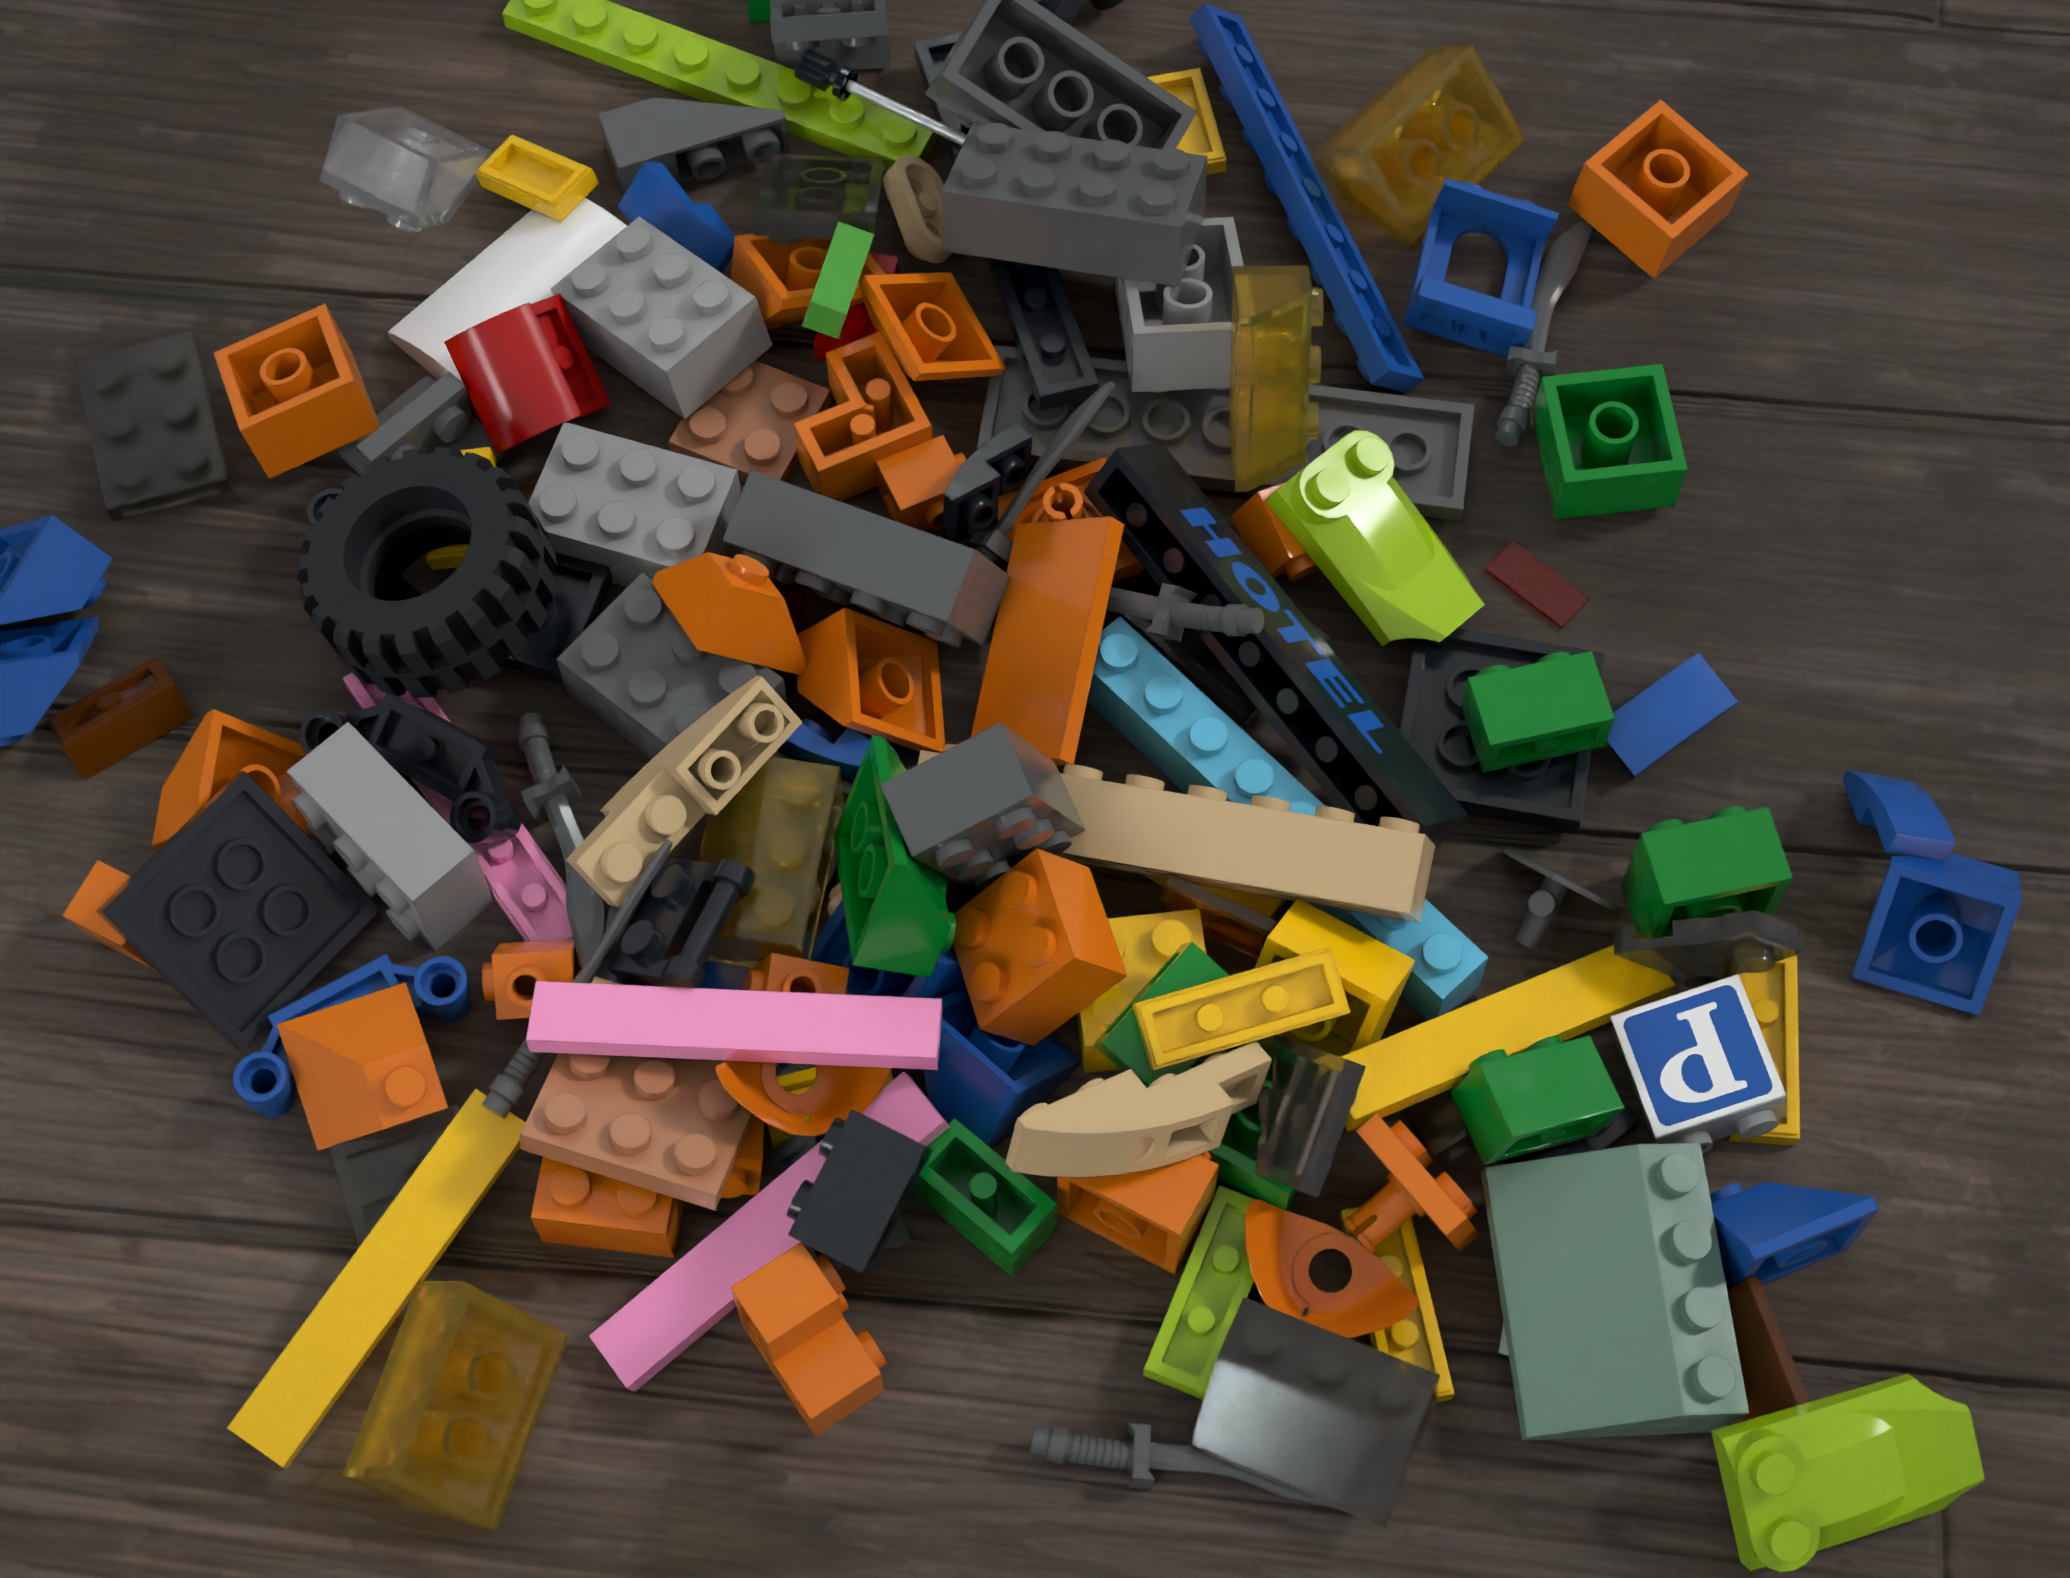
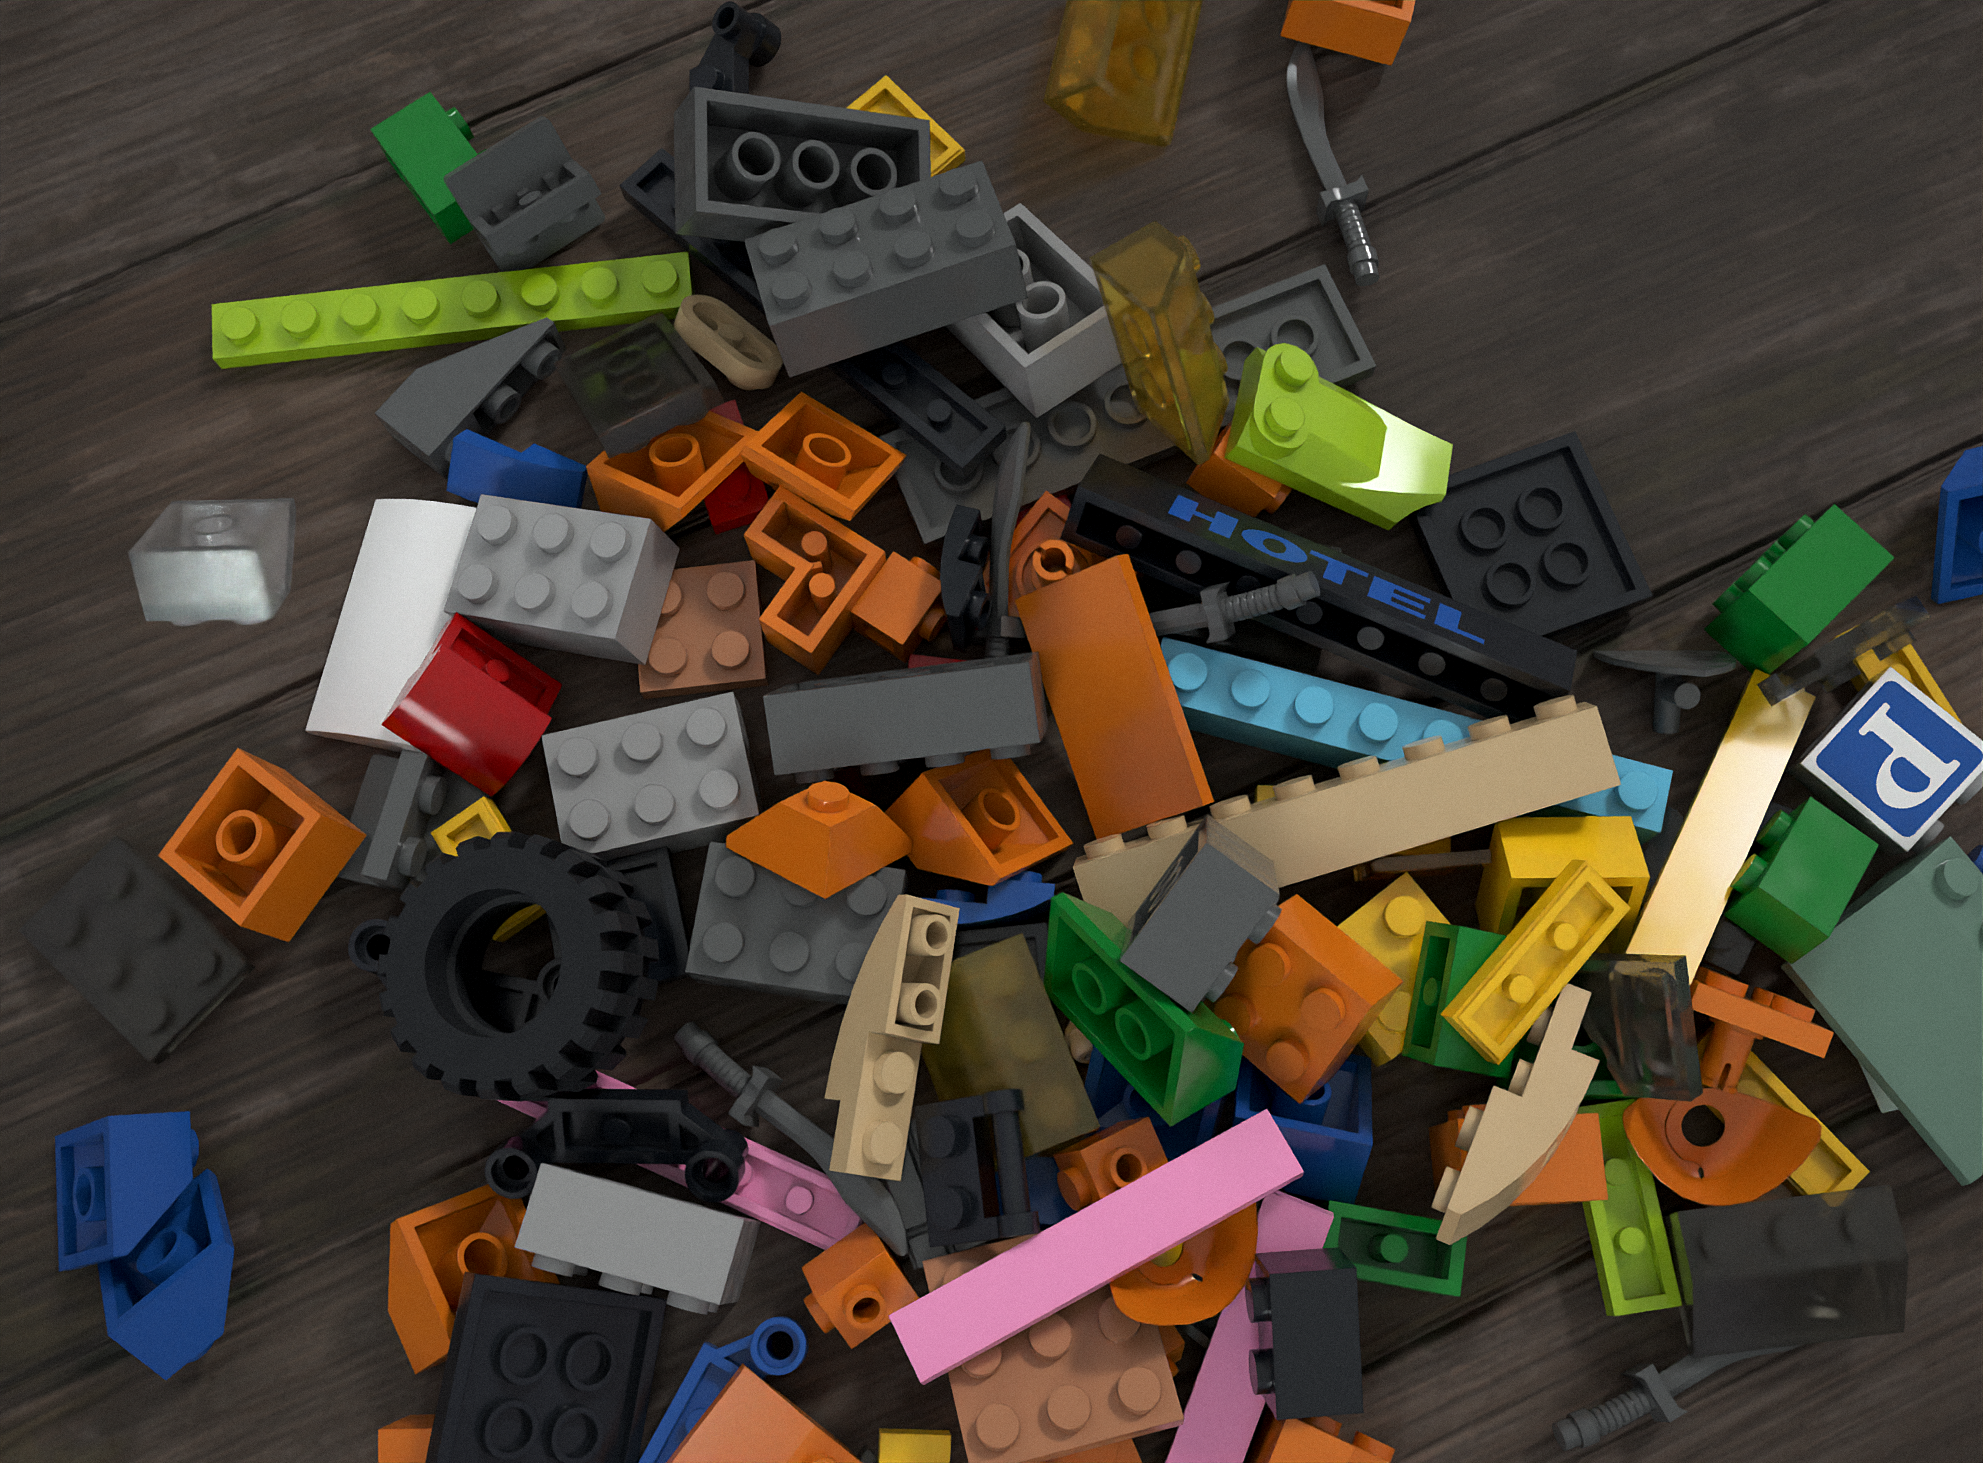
camera: 30 degrees left, 10 degrees up
(120, 718) = (294, 1257): reddish brown slope -> none
(509, 1086) = (914, 1417): dark grey sword -> none
(536, 178) = (352, 504): yellow tile -> none
(823, 73) = (557, 261): piece -> none
(838, 280) = (719, 461): bright green piece -> none
(1307, 201) = (1040, 138): blue plate -> none
(1464, 313) = (1260, 187): blue panel -> none
(1536, 584) = (1467, 397): clear red window -> none
(1537, 710) = (1567, 519): green brick -> none
(1609, 441) = (1461, 235): green brick -> none
(1668, 714) = (1657, 457): blue slope -> none
(1902, 814) = (1911, 437): blue slope -> none

